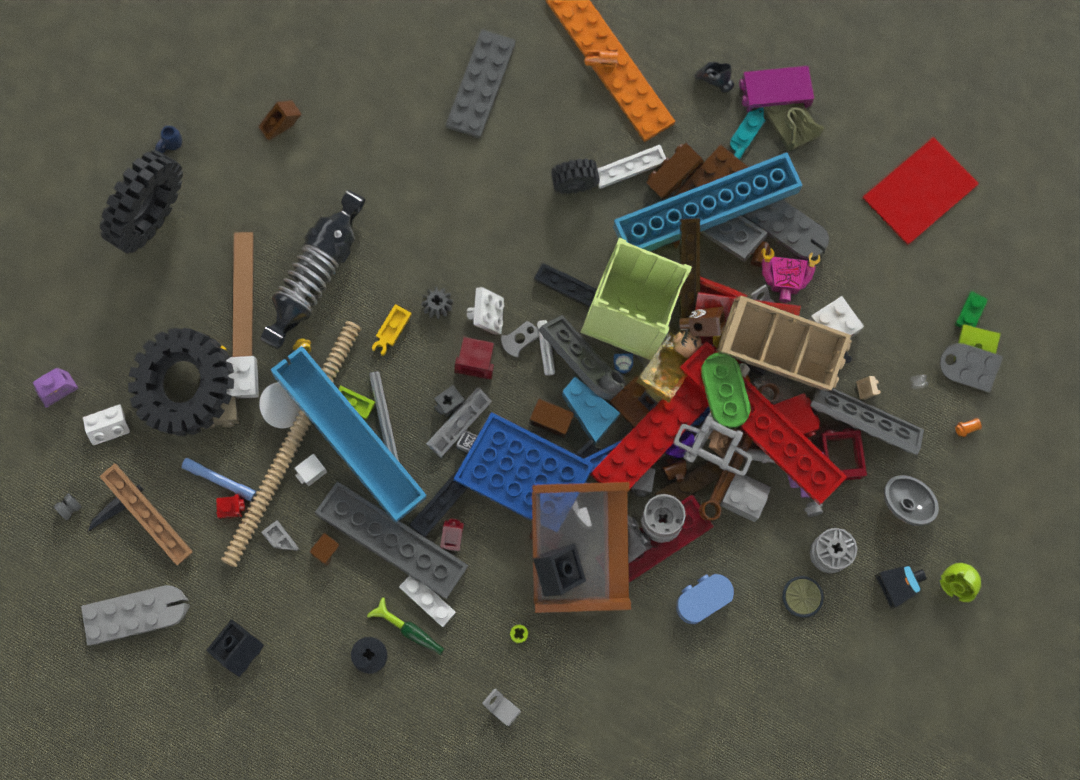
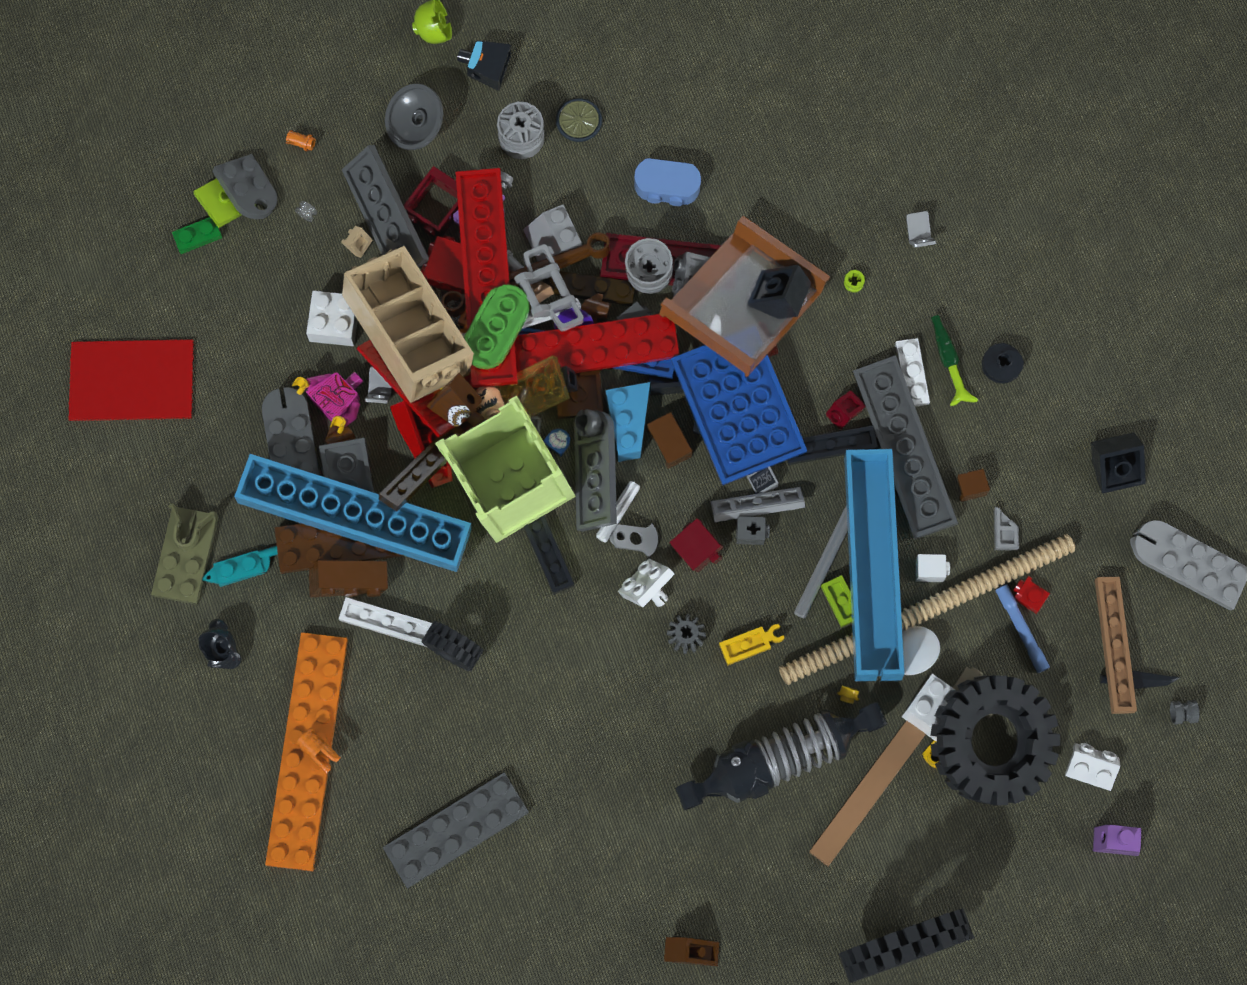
camera: 135 degrees left, 0 degrees up
(776, 87) = (174, 583): magenta panel -> none

